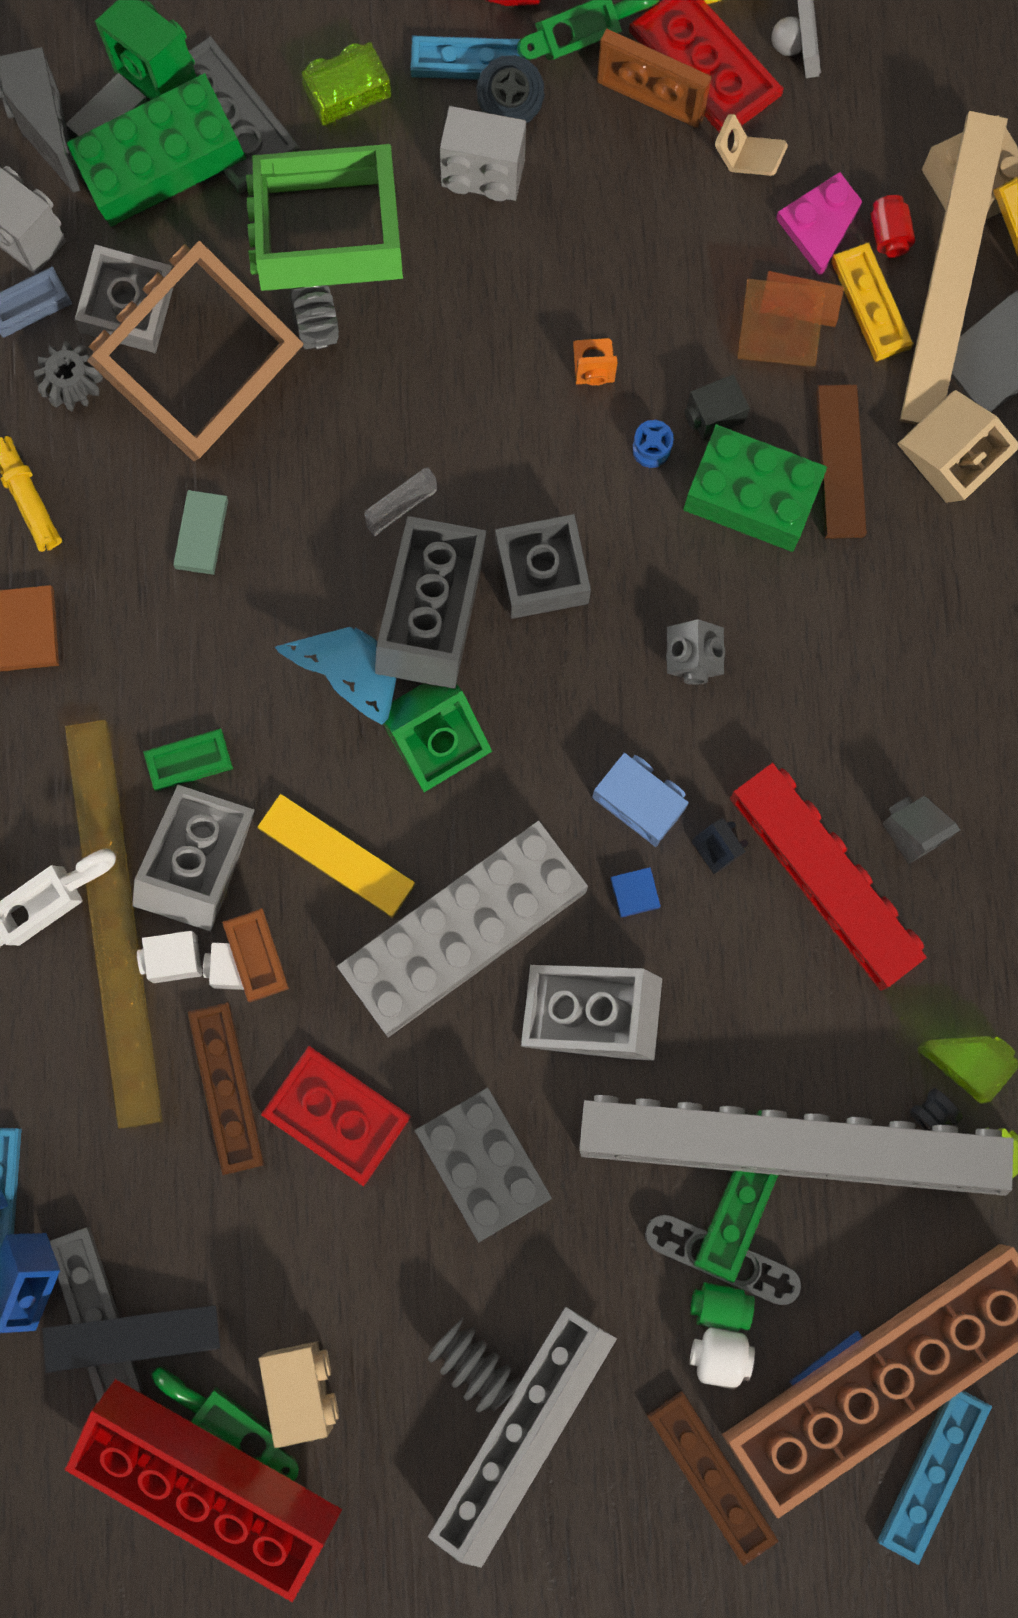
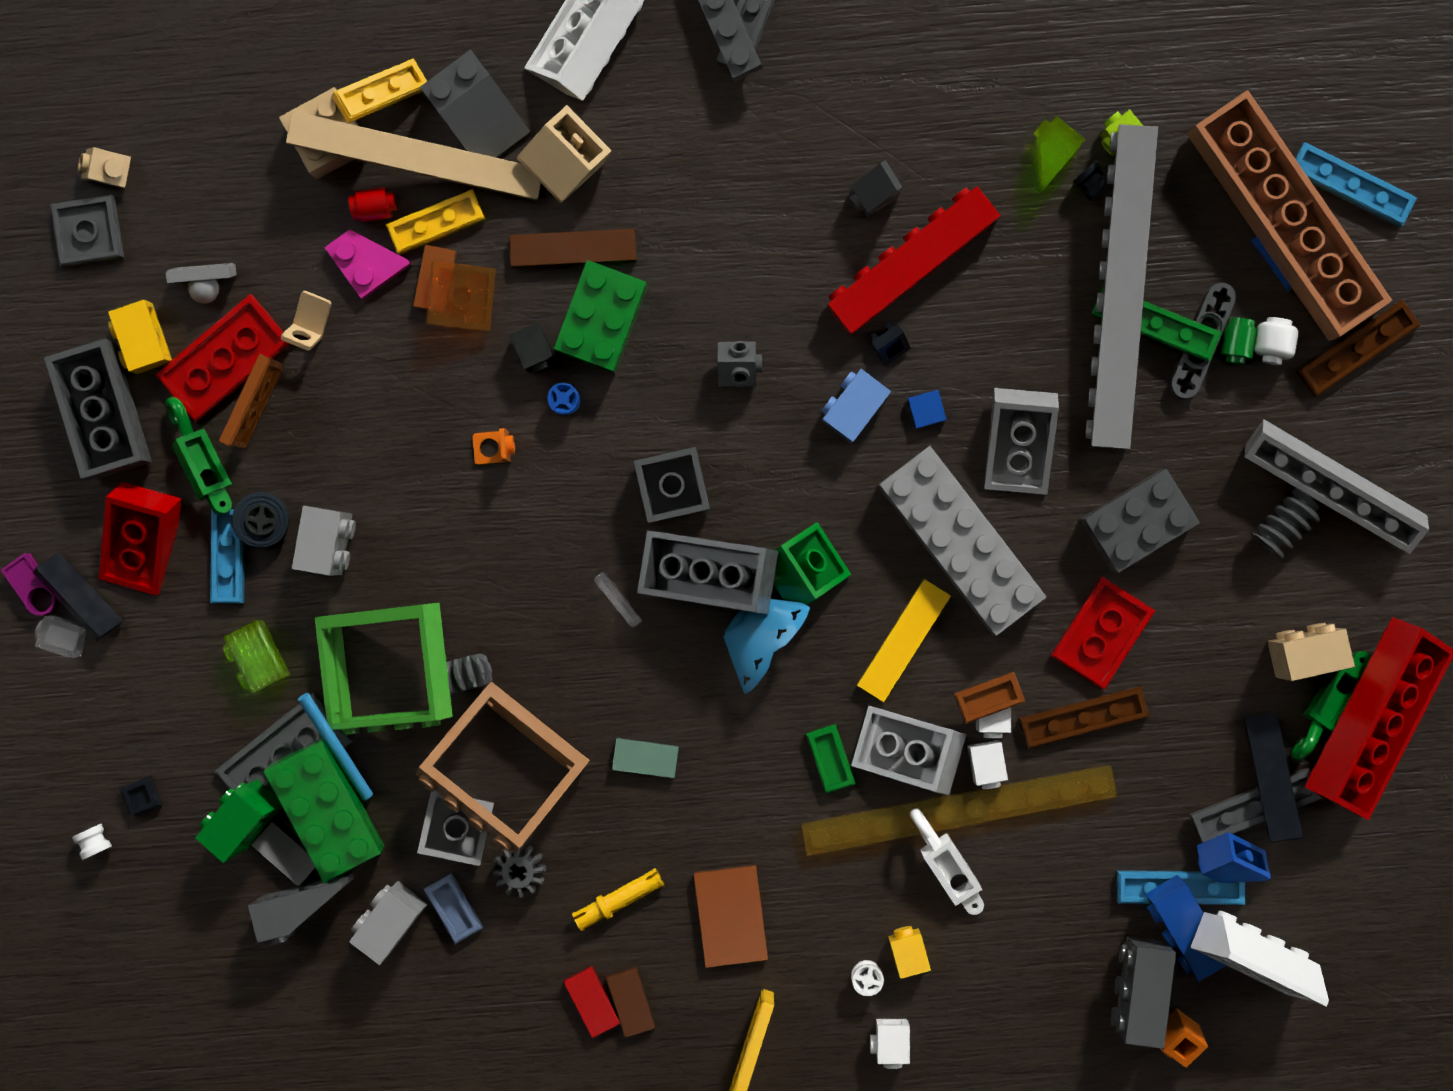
camera: 90 degrees left, 10 degrees up
(232, 163) = (335, 746): none -> dark azure bar

